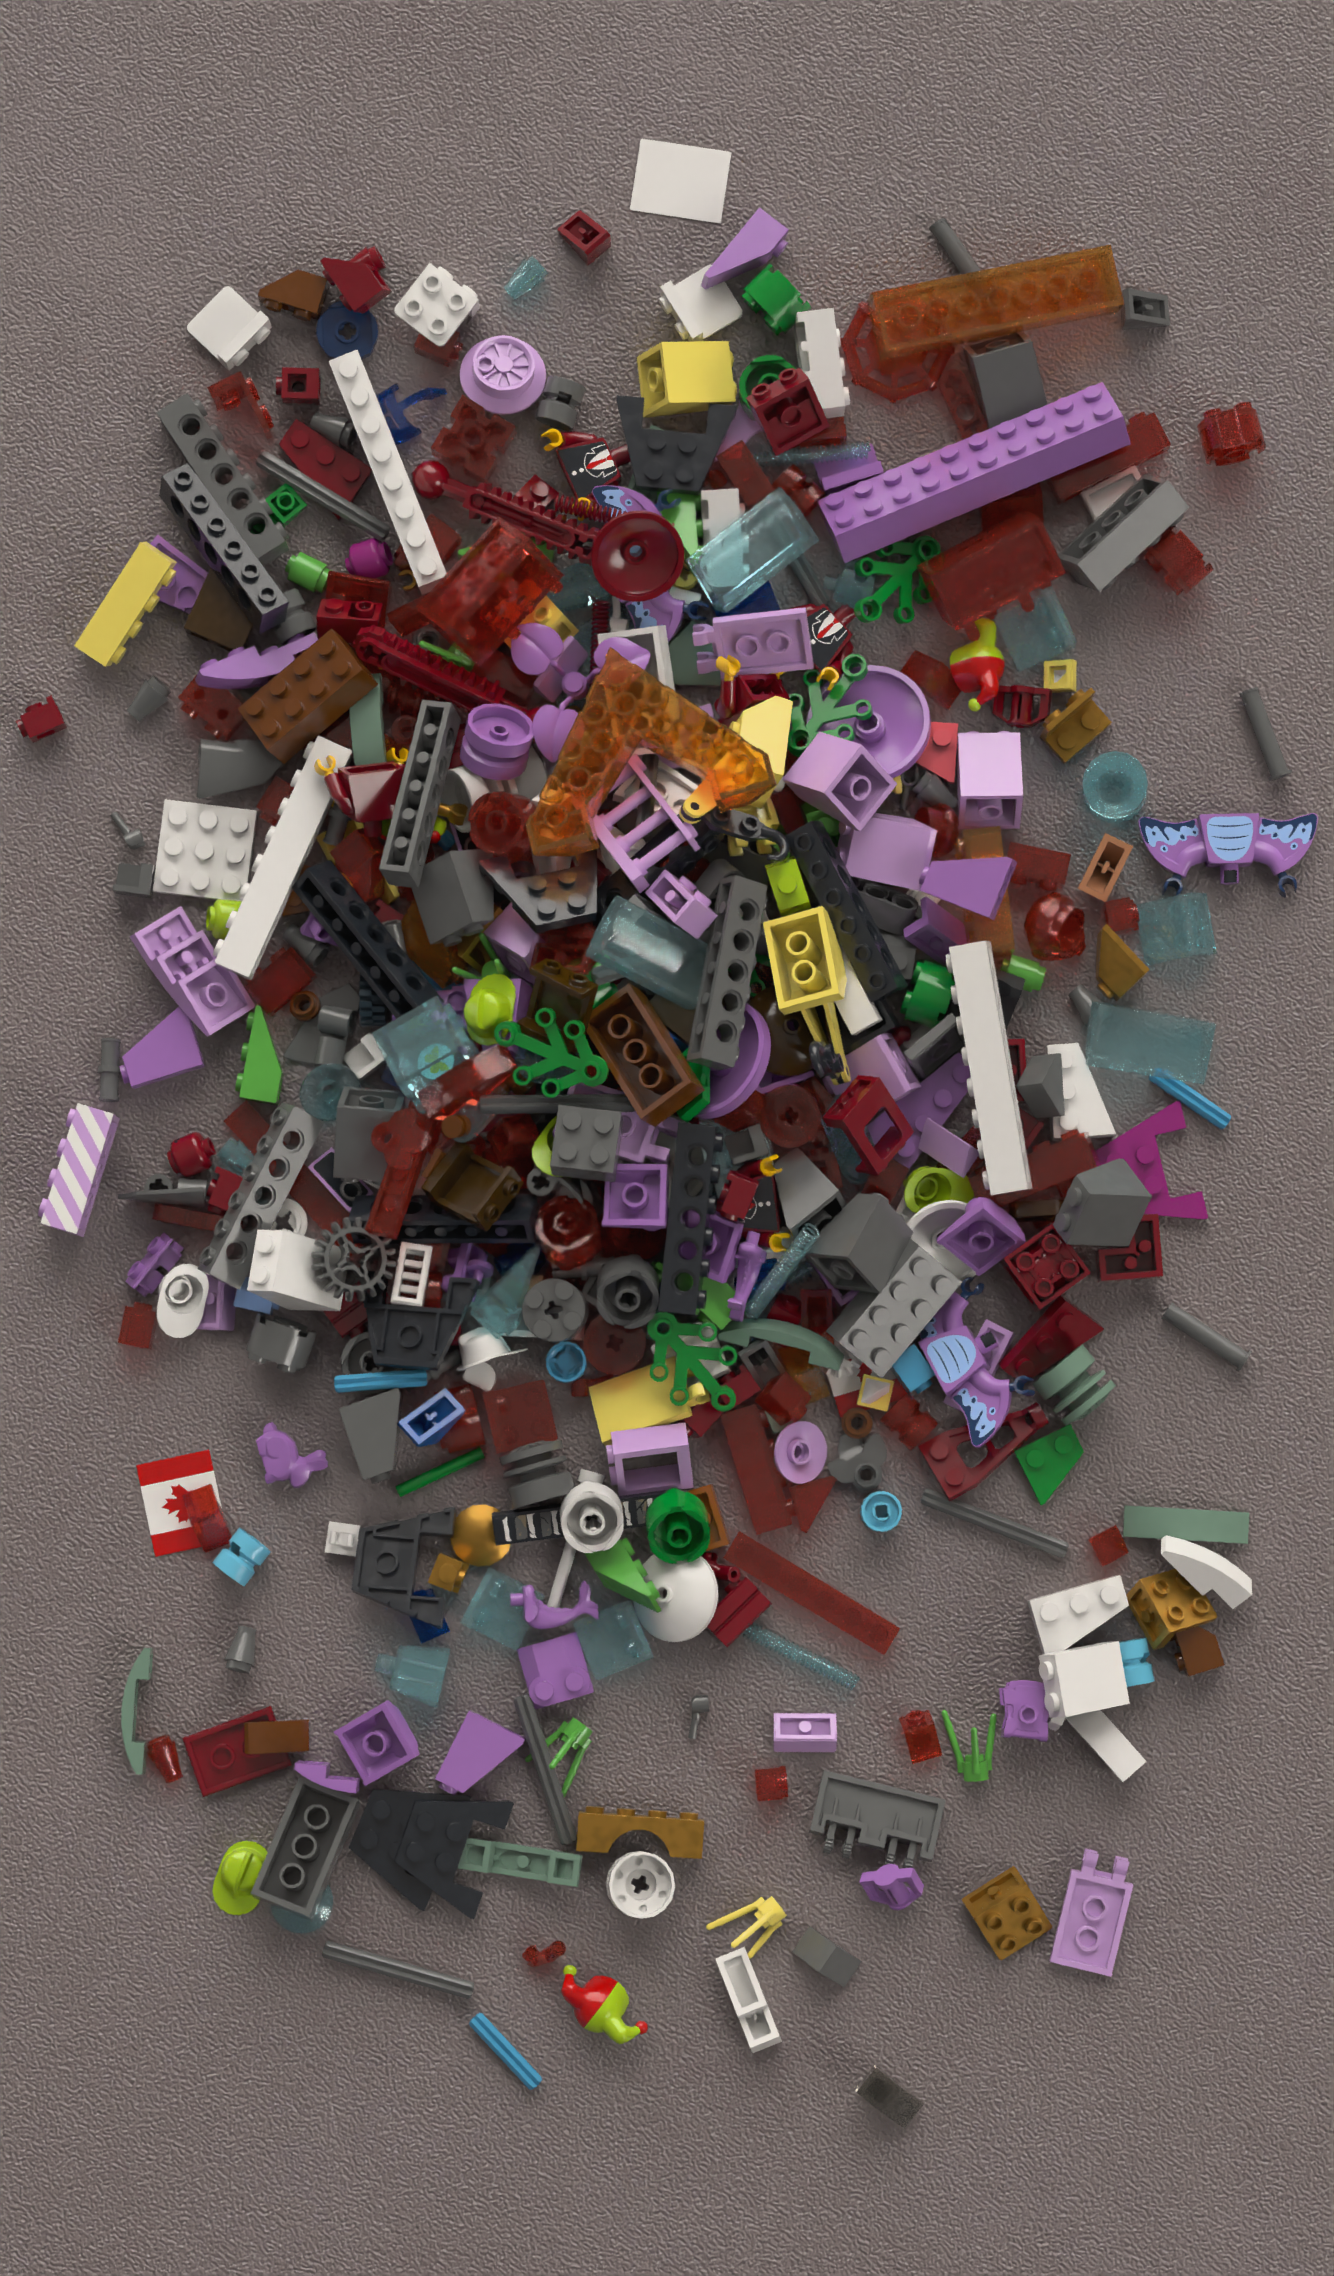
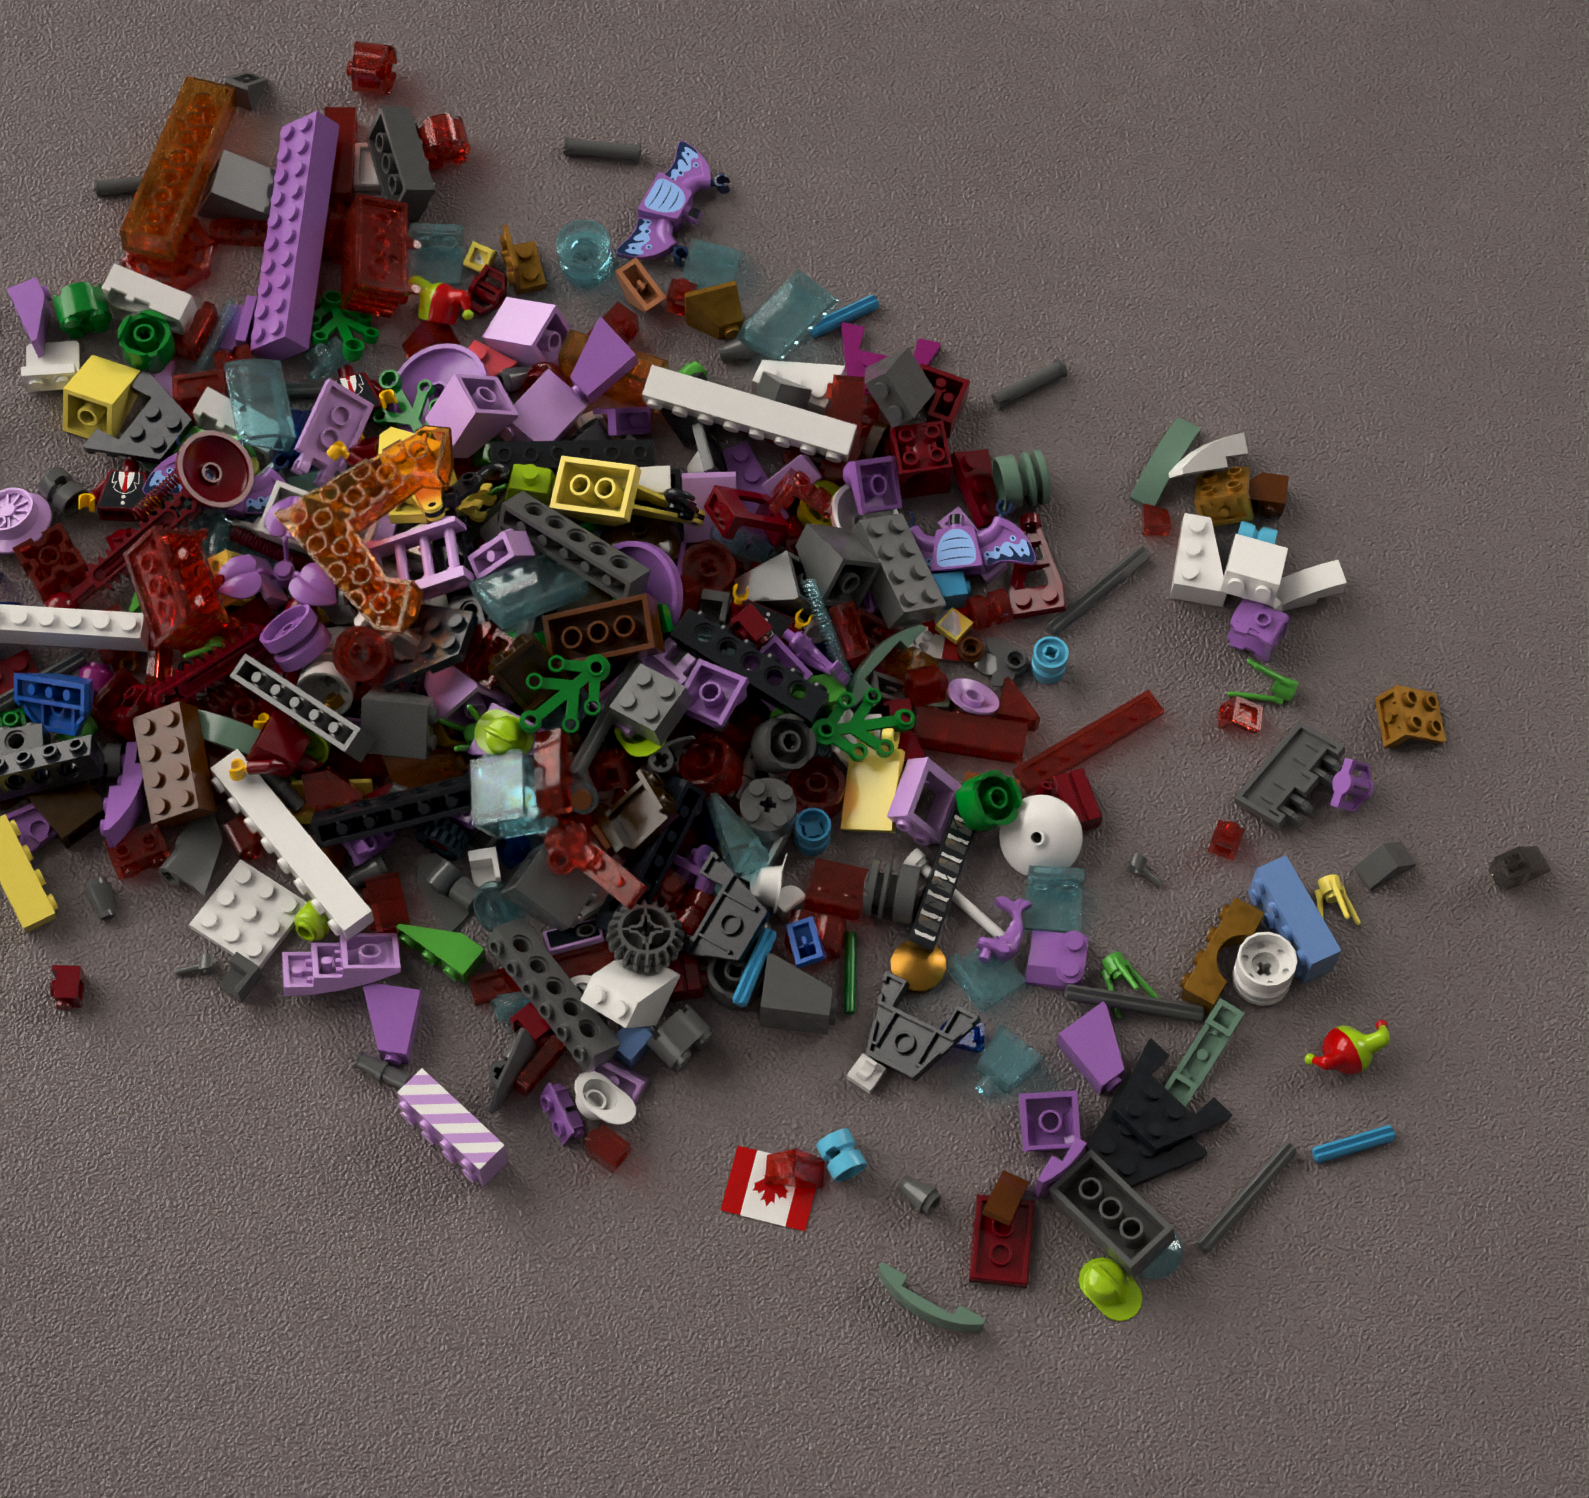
camera: 65 degrees left, 20 degrees down
(165, 1757) = (979, 1299): clear red cone -> none
(191, 1154) = (488, 1038): dark red head -> none
(283, 1460) = (777, 1087): medium lavender animal -> none
(299, 1000) = (411, 894): reddish brown plate -> none
(320, 537) = (55, 700): none -> blue wedge
(398, 1287) = (695, 914): white slope -> none
(448, 1573) = (936, 1001): pearl gold brick -> none
(545, 1956) = (1288, 1071): clear red arm -> none
(580, 1387) = (838, 835): clear red hand -> none
(595, 1534) = (949, 858): white brick -> none
(623, 1575) = (999, 867): bright green slope -> none
(708, 1892) = (1295, 917): none -> medium blue brick
(748, 2000) = (1395, 936): white slope -> none
(787, 410) = (170, 325): dark red plate -> none
(795, 1294) = (849, 630): none -> clear red plate
(802, 1654) = (1137, 772): clear light blue piece -> none
(804, 1732) = (1197, 799): lavender slope -> none
(930, 994) = (671, 441): green brick -> none
(930, 1167) = (800, 485): none -> clear red bracket
(1049, 1460) = (1069, 532): green wing -> none
(1055, 928) = (666, 340): clear red helmet -> none
(1092, 1916) = (1439, 659): lavender tile -> none

